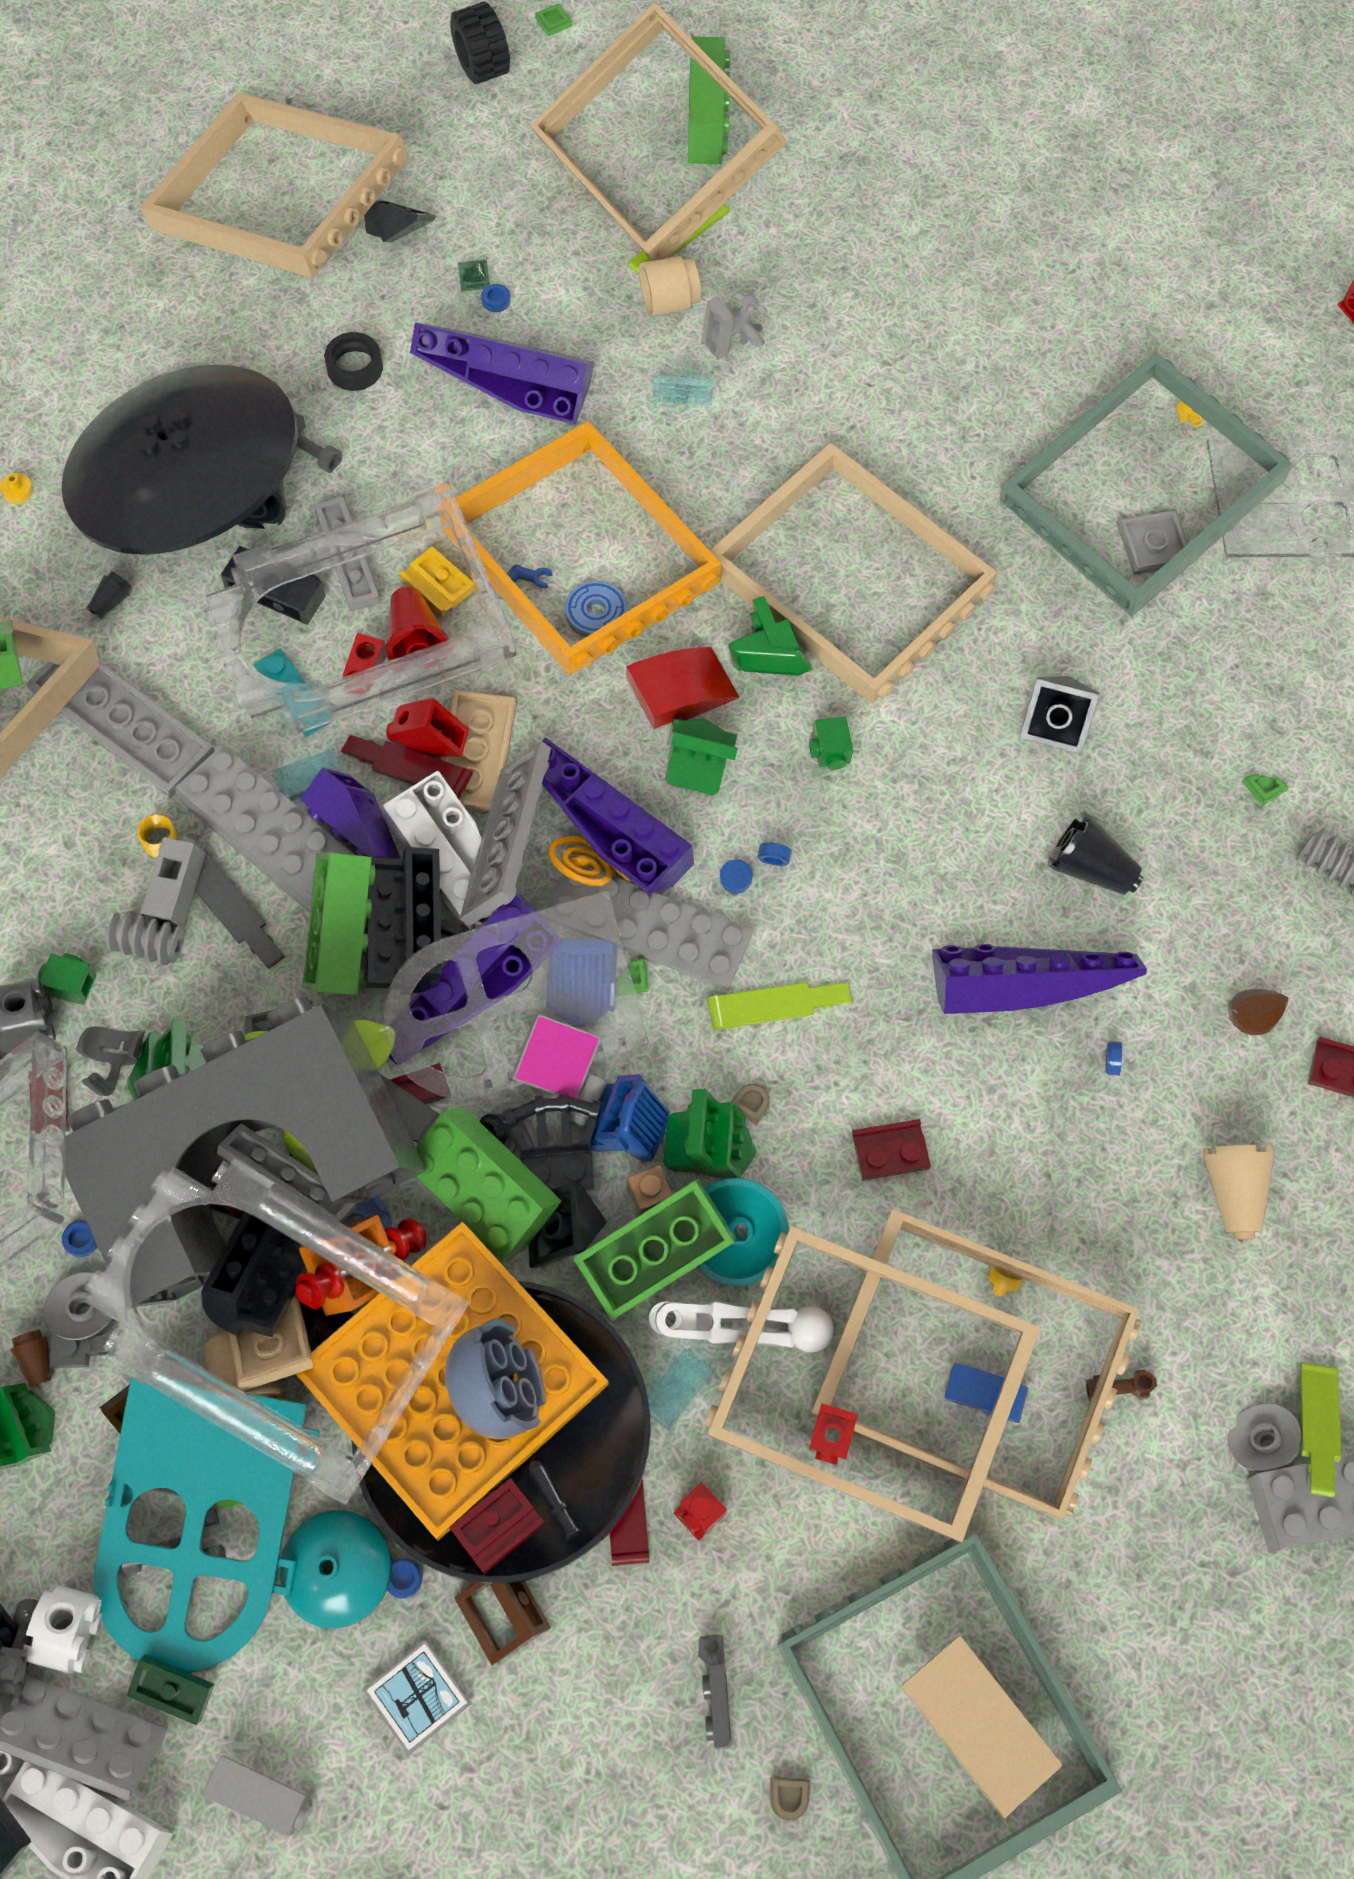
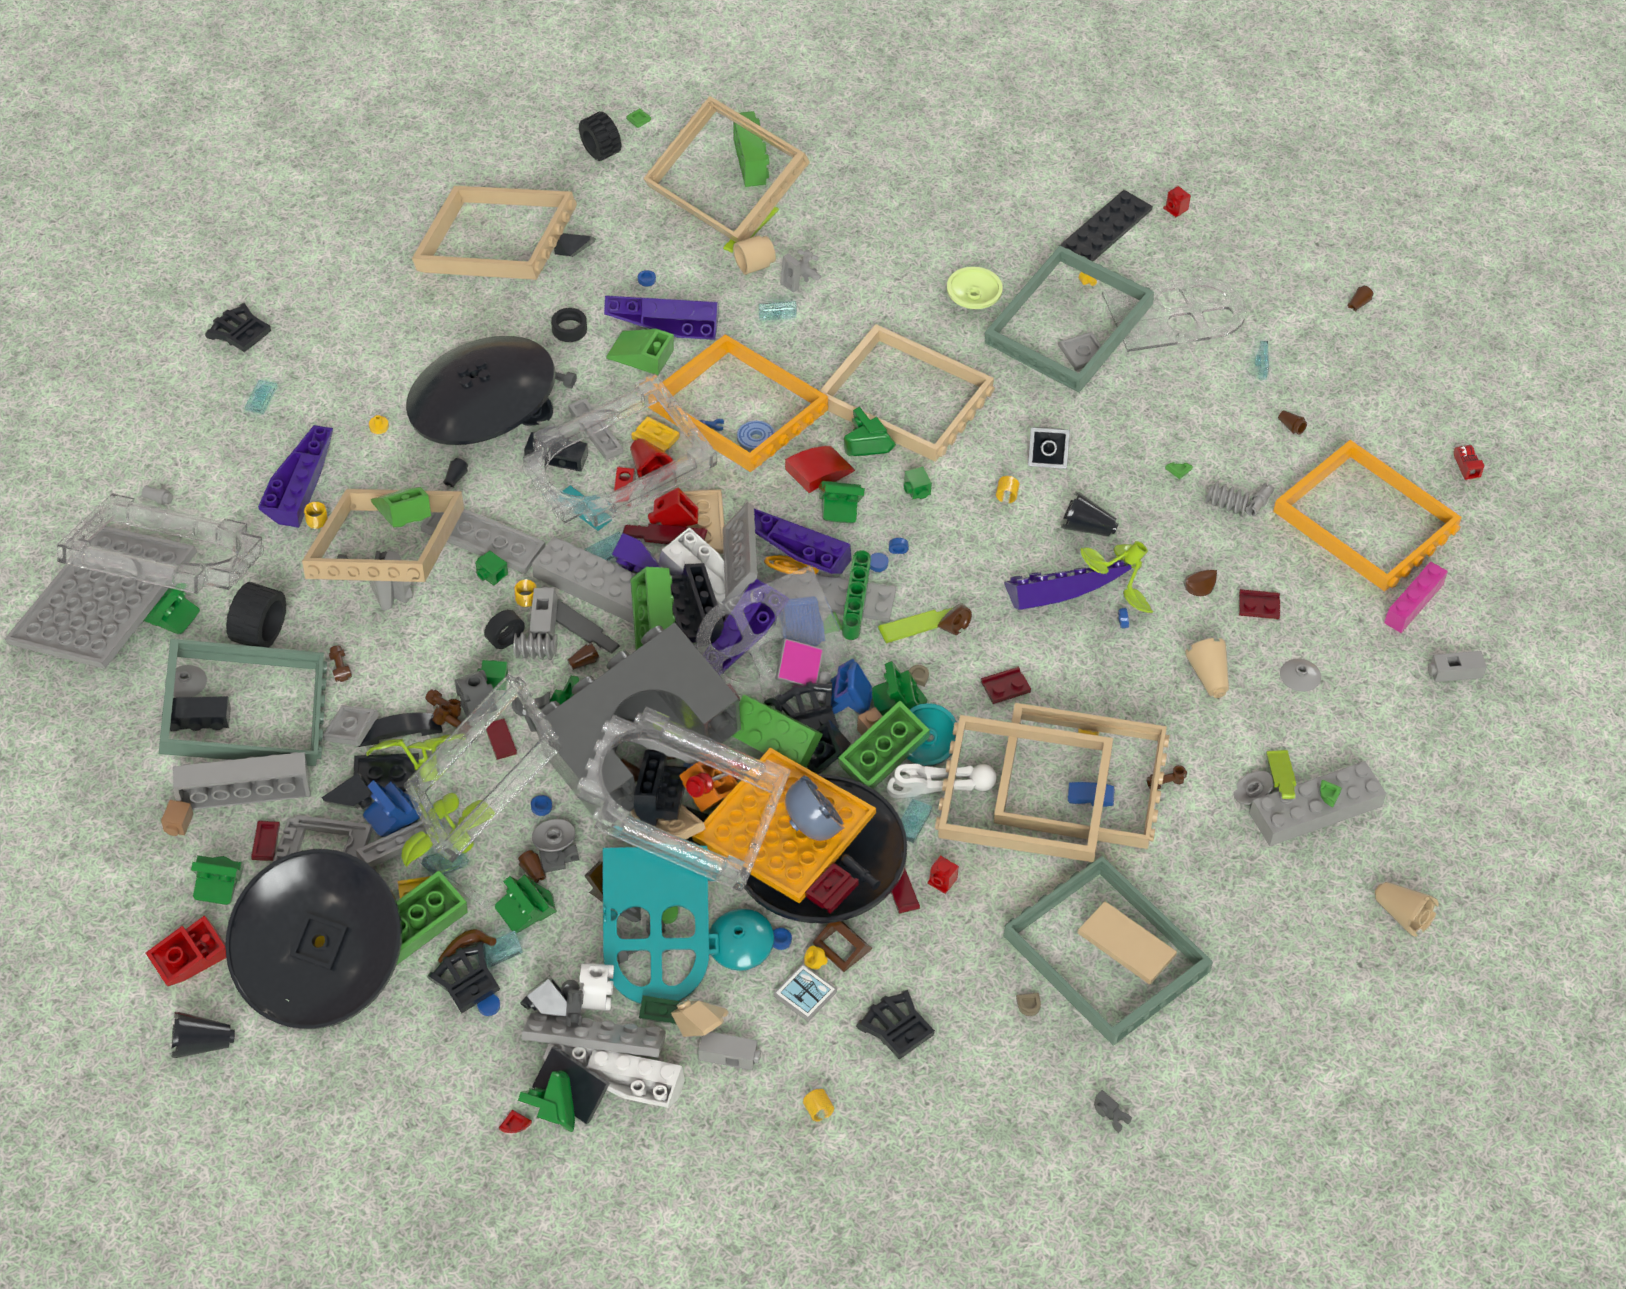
camera: 10 degrees left, 15 degrees down
(100, 897) = (500, 622): none -> black tyre
(115, 779) = (491, 568): none -> green brick
(219, 970) = (584, 656): none -> reddish brown cone
(223, 1729) = (698, 1017): none -> tan slope
(448, 1634) = (815, 957): none -> yellow tile
(455, 425) = (643, 349): none -> bright green slope
(473, 275) = (629, 267): clear green tile -> none
(567, 1820) = (905, 1034): none -> black plate
(681, 955) = (856, 595): none -> green beam
(715, 1688) = (975, 958): dark grey hinge -> none
(835, 1010) = (955, 619): none -> reddish brown piece
(836, 1418) = (1009, 810): red brick -> none
(978, 774) = (1010, 484): none -> yellow piece
(1008, 391) = (974, 287): none -> yellowish green dish
(1153, 954) = (1129, 554): none -> lime plant
(1238, 324) = (1107, 225): none -> black plate

